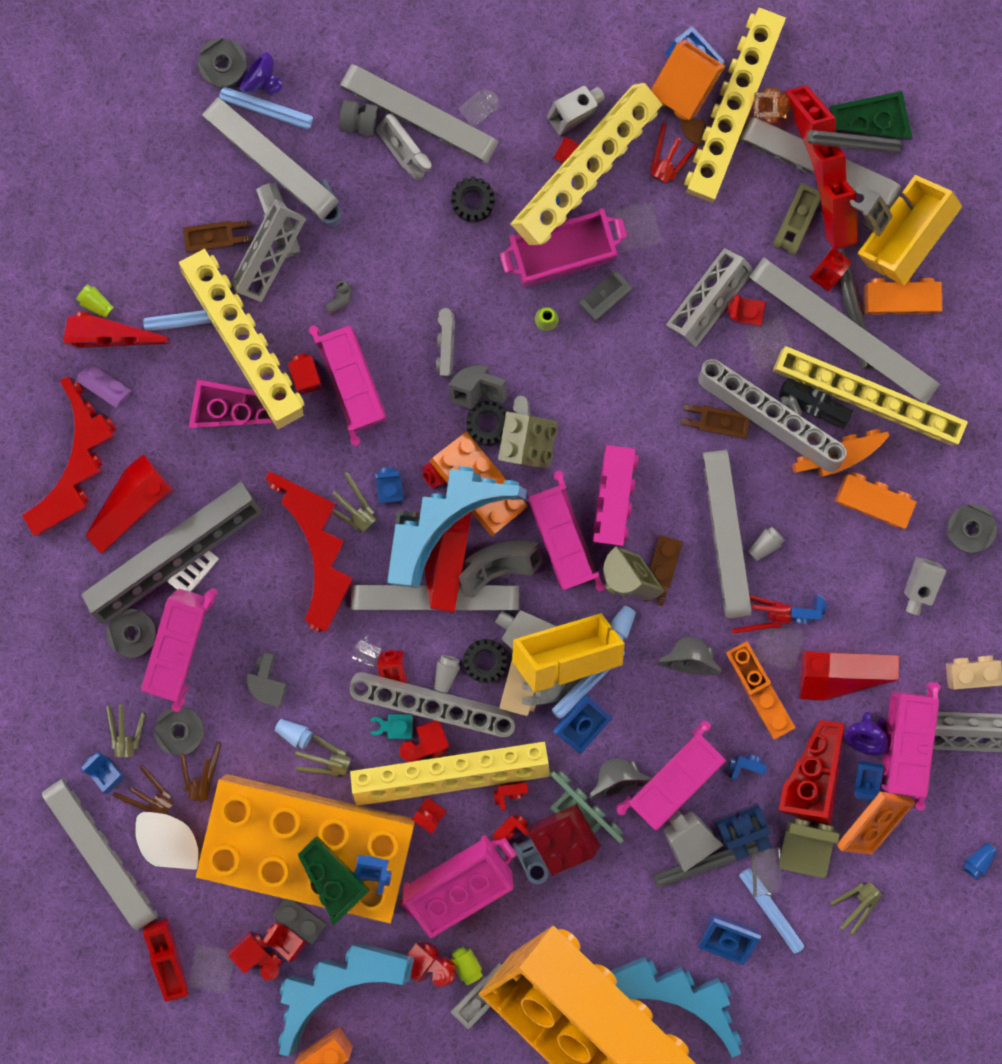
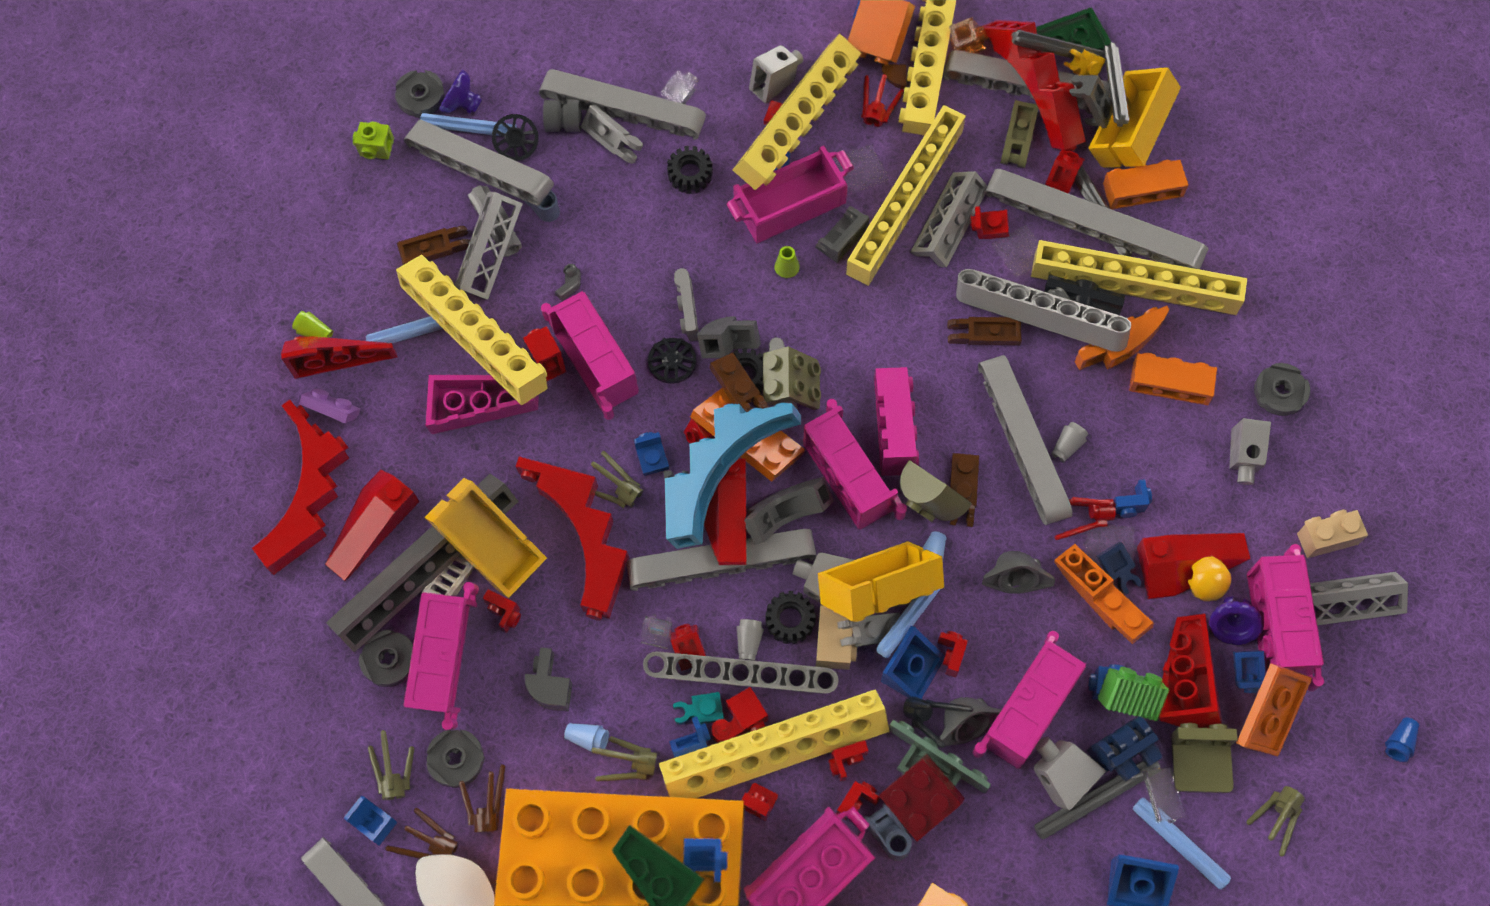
camera: 10 degrees left, 20 degrees down
(177, 117) = (373, 140): none -> lime brick
(229, 549) = (485, 537): none -> yellow piece
(234, 604) = (498, 605): none -> red bracket
(309, 133) = (515, 136): none -> black wheel
(380, 755) = (692, 741): none -> blue bracket
(423, 394) = (672, 360): none -> black wheel
(478, 439) = (737, 382): none -> reddish brown hinge
(580, 764) = (921, 711): none -> black plant
(619, 722) = (953, 657): none -> red bracket
(673, 268) = (905, 195): none -> light yellow brick
(761, 787) = (1133, 693): none -> bright green brick
(780, 667) = (1118, 564): none -> dark blue plate
(856, 695) = (1210, 579): none -> yellow hair
(880, 159) = (1085, 63): none -> yellow plate
(901, 190) = (1116, 85): none -> axle

